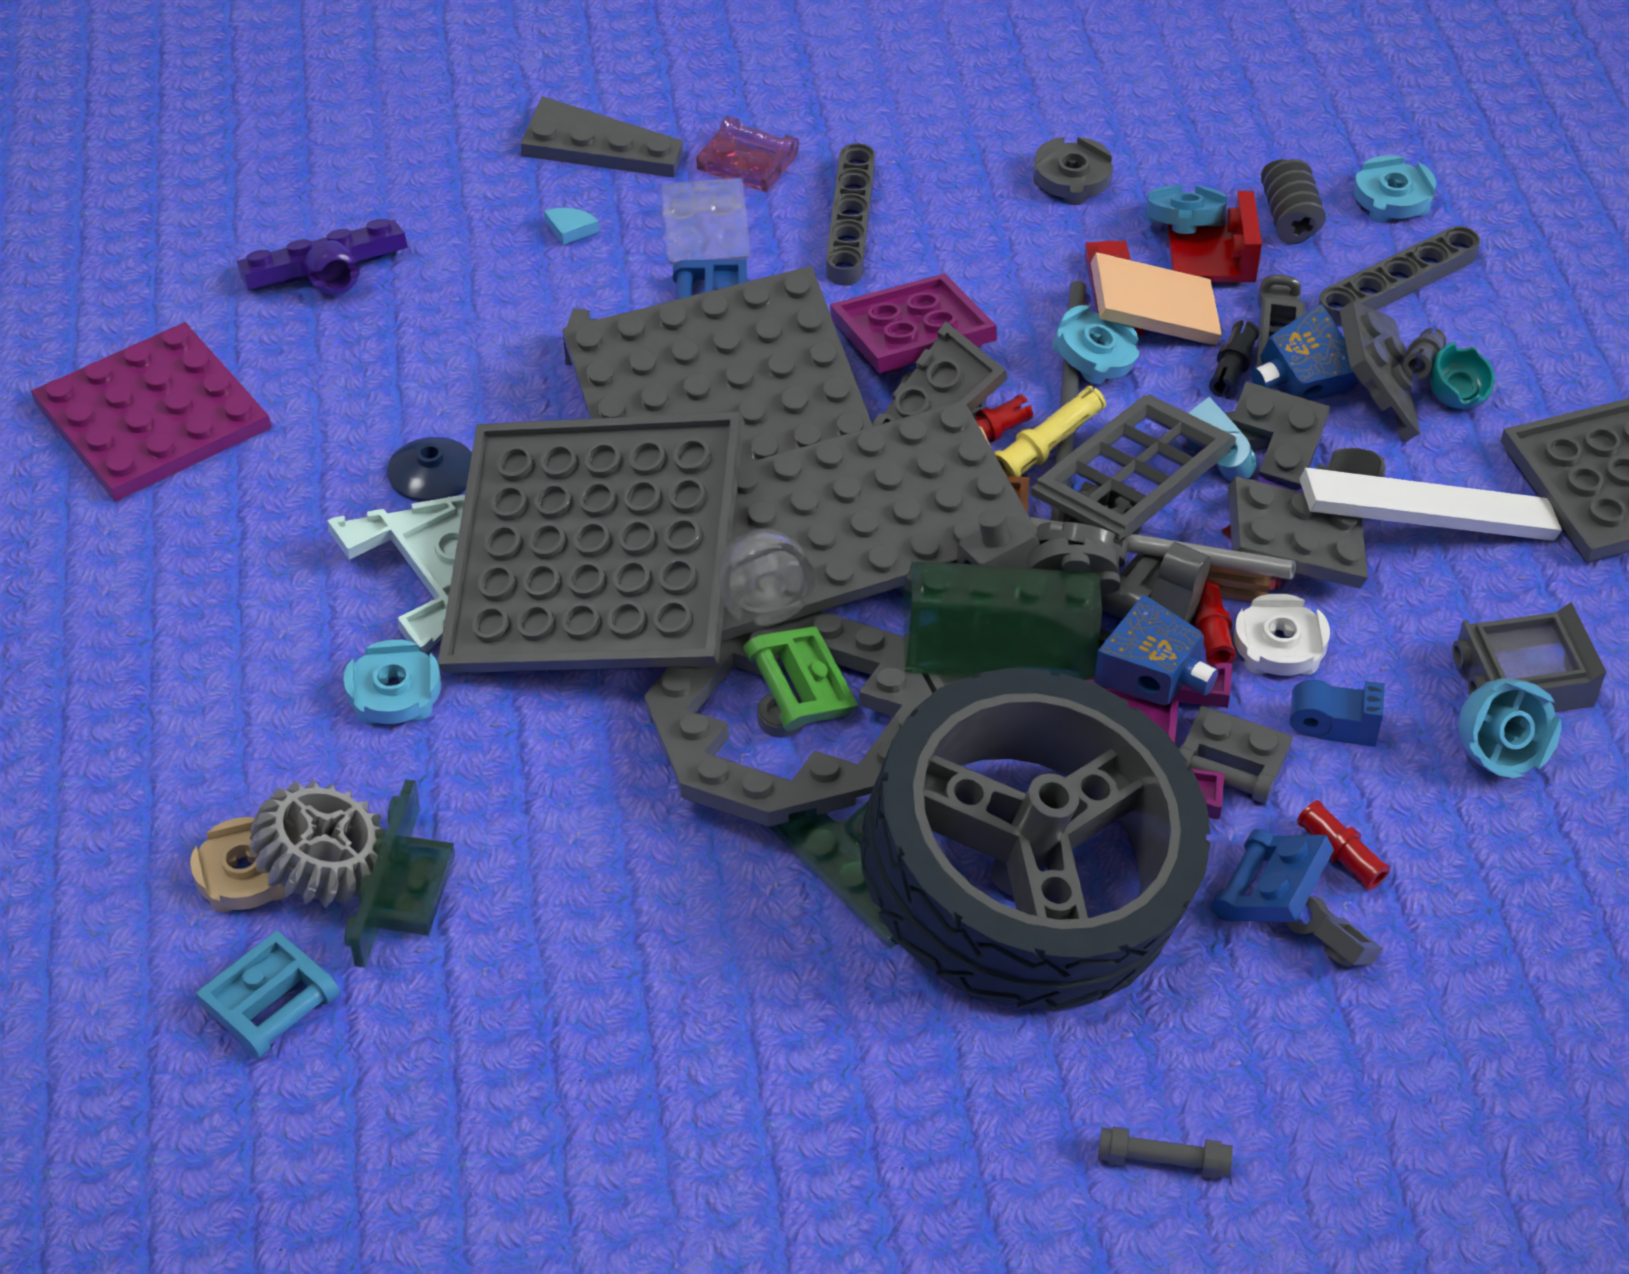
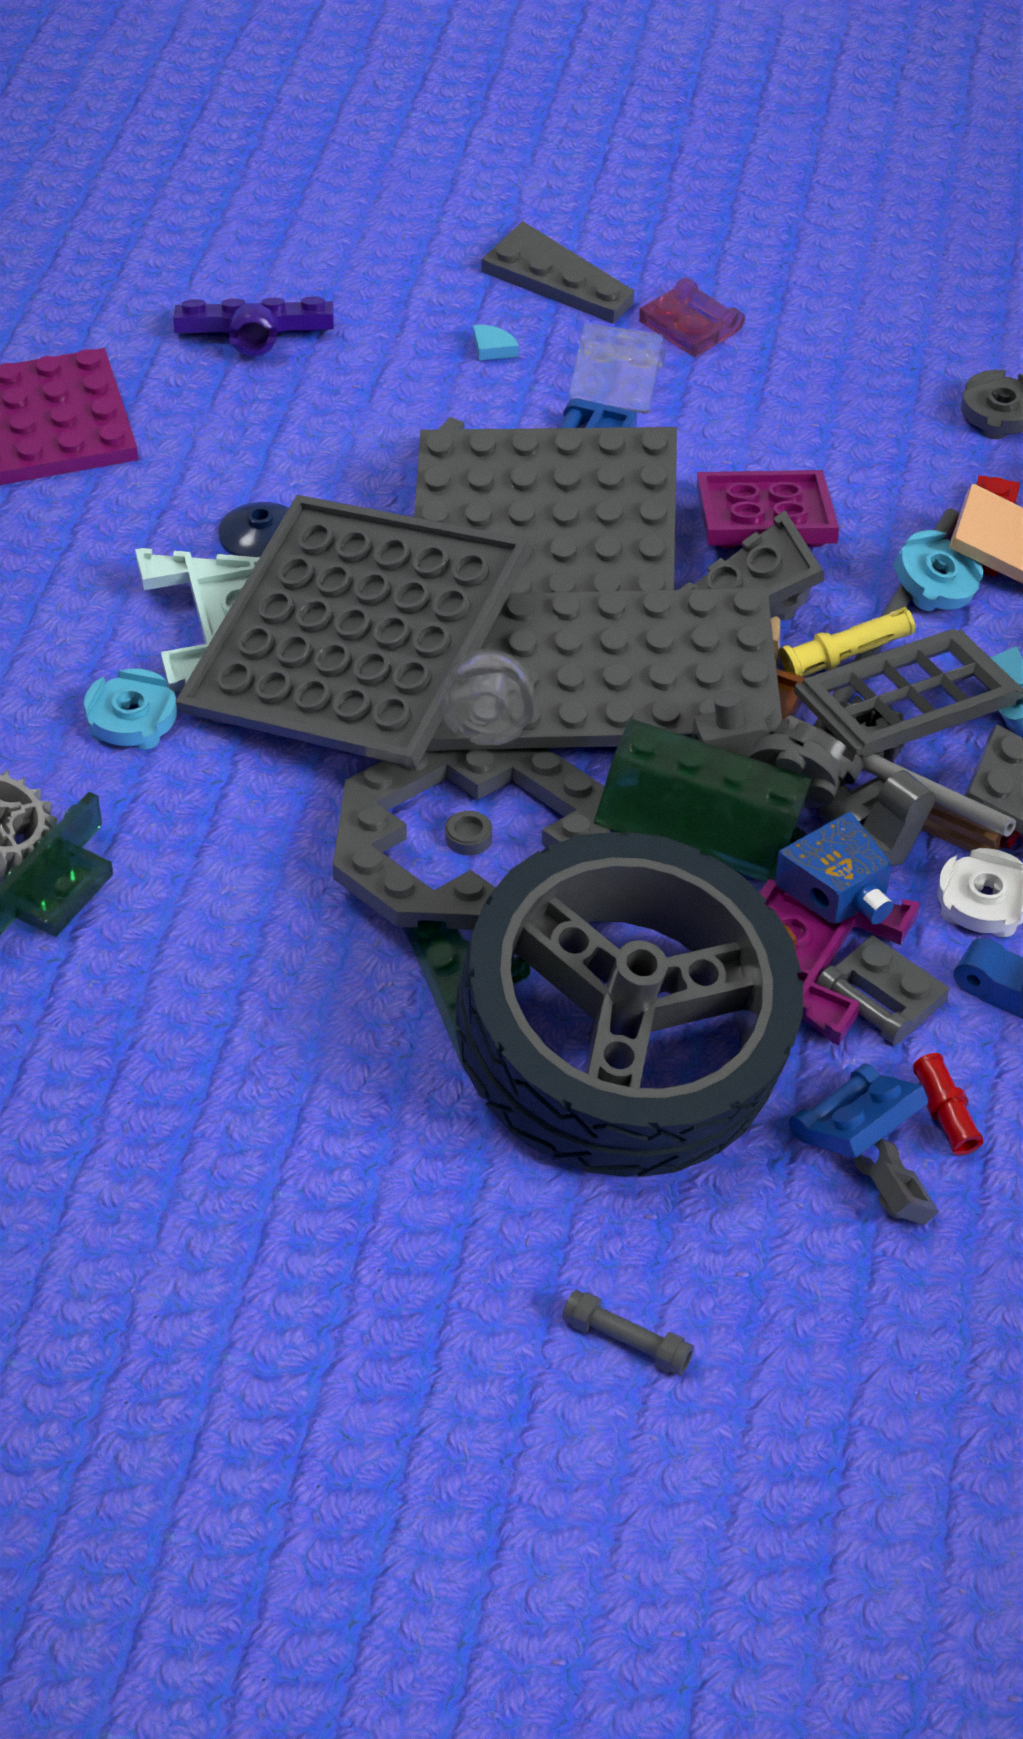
camera: 20 degrees right, 0 degrees up
(811, 671) = (508, 798): bright green plate -> none
(850, 225) = (762, 406): dark grey beam -> none
(1003, 417) = (810, 618): red pin -> none
(1215, 626) = (923, 862): red pin -> none

